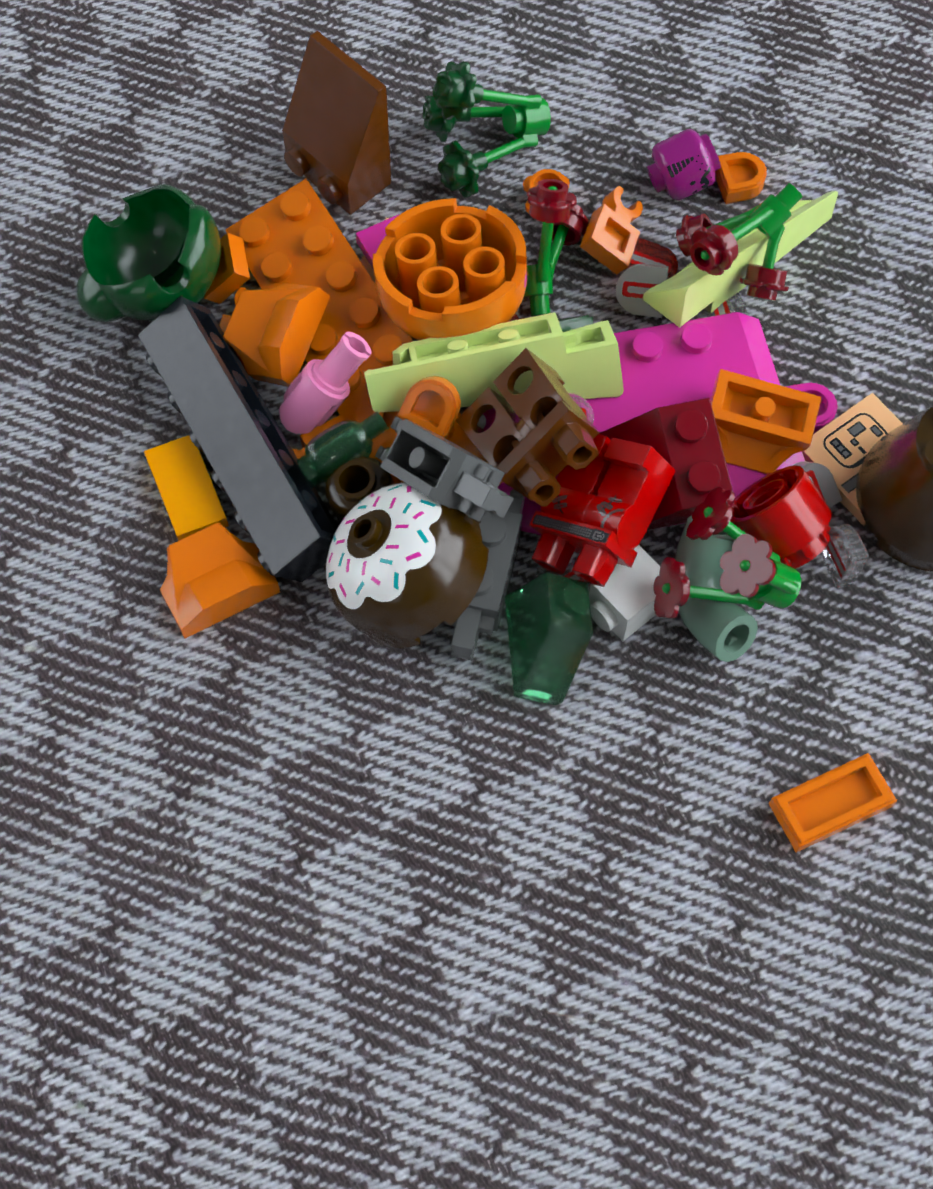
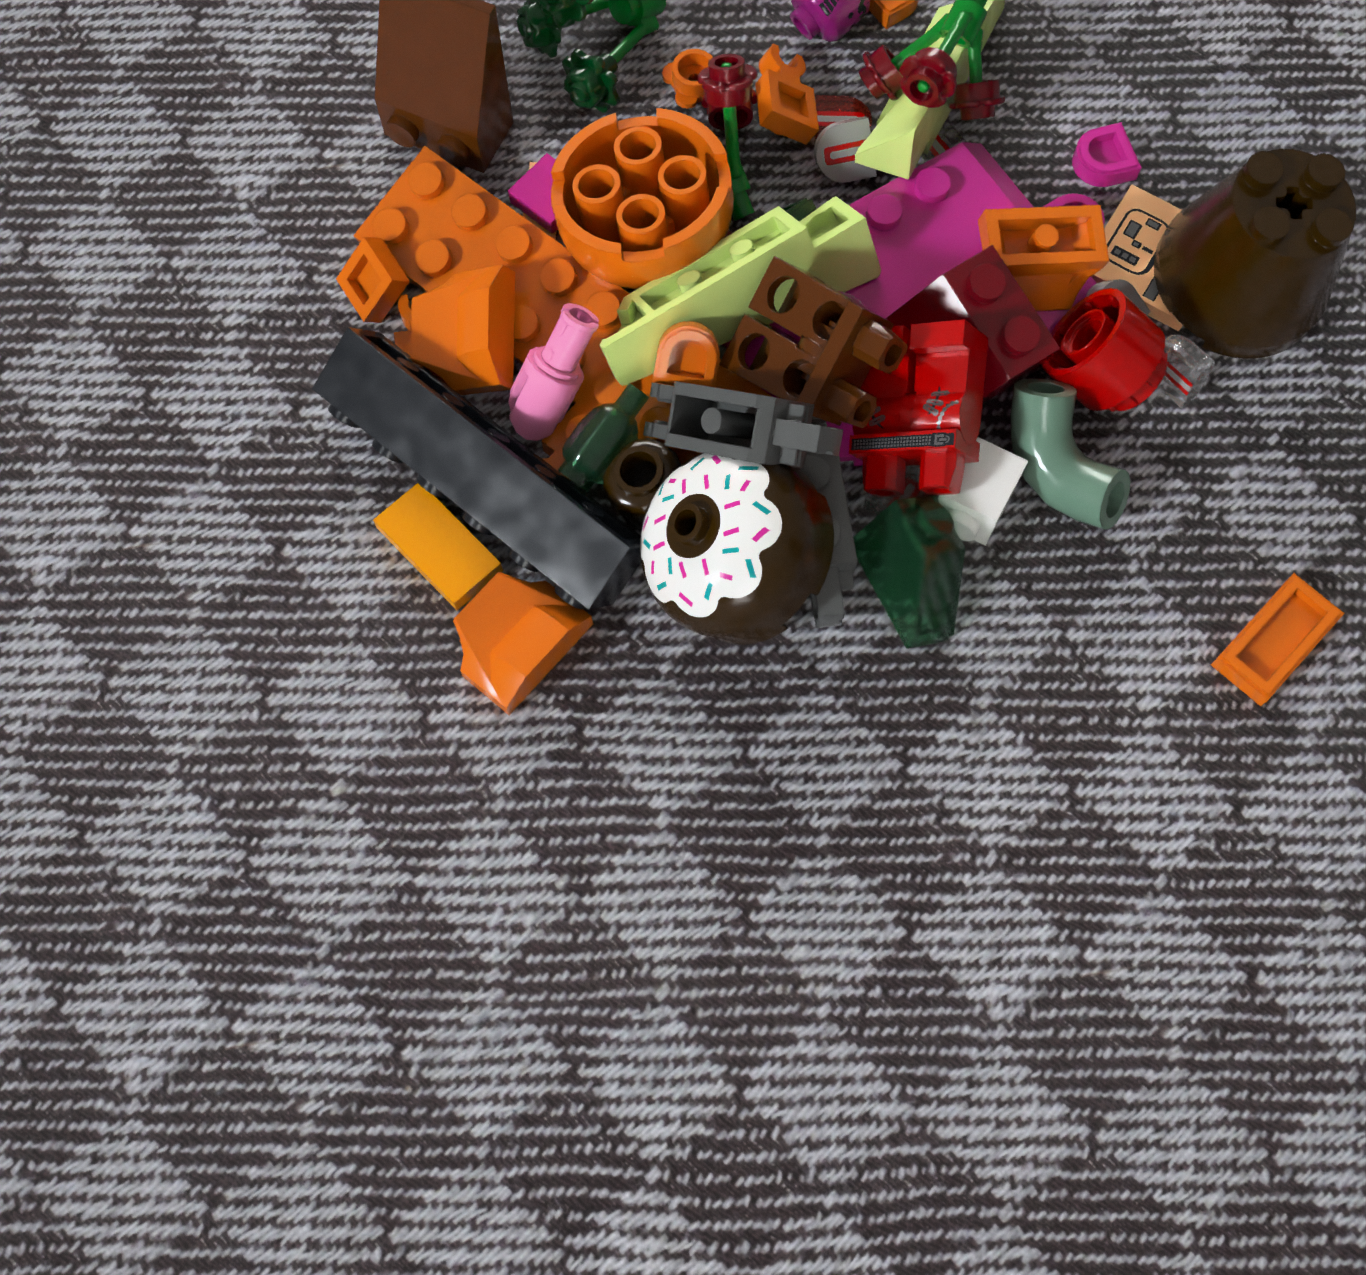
camera: 20 degrees left, 5 degrees up
(148, 256) = (286, 293): dark green piece -> none
(750, 570) = (1120, 420): dark red plant -> none
(861, 363) = (1105, 157): none -> dark pink tile

